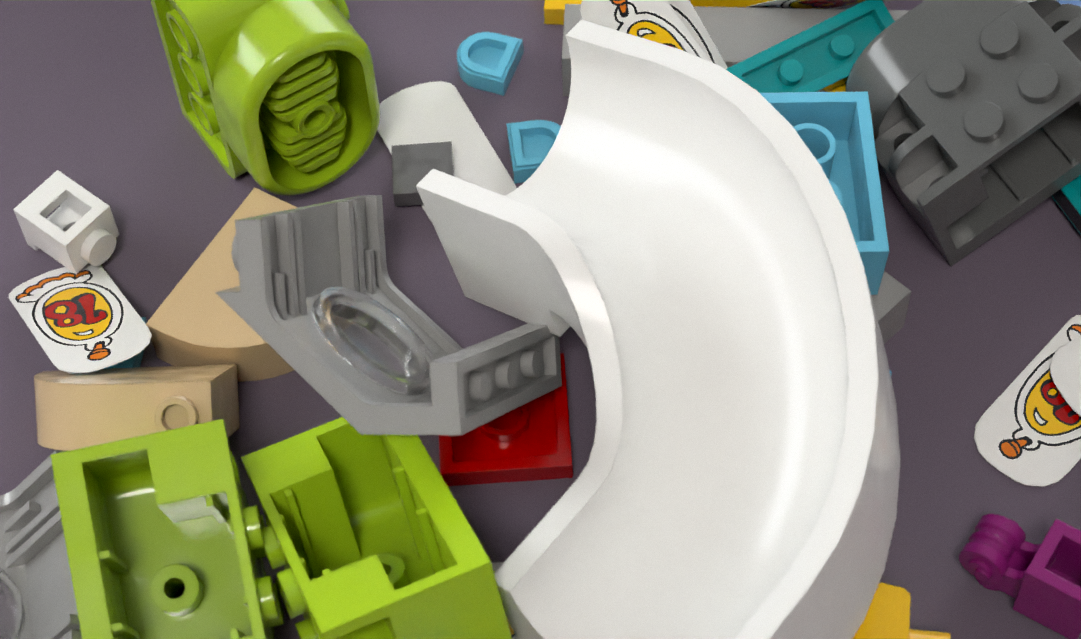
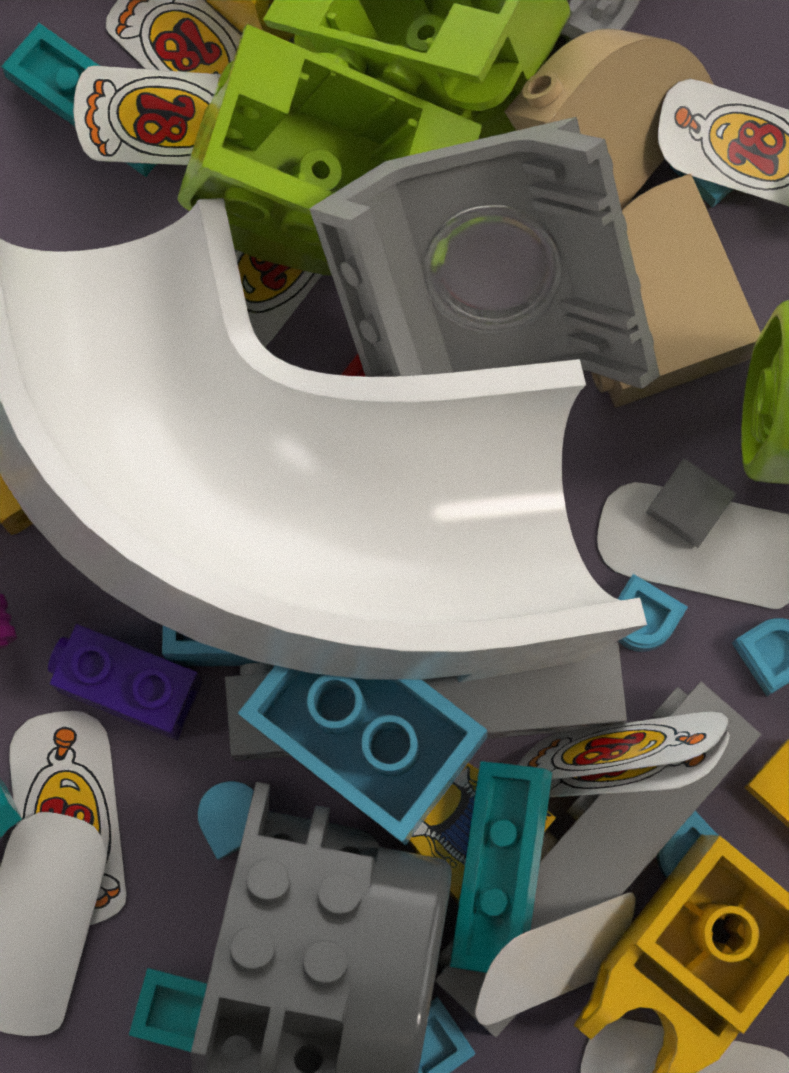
camera: 125 degrees right, 20 degrees up
(936, 423) = (124, 681): none -> dark purple brick
(946, 287) = (224, 816): none -> medium azure tile

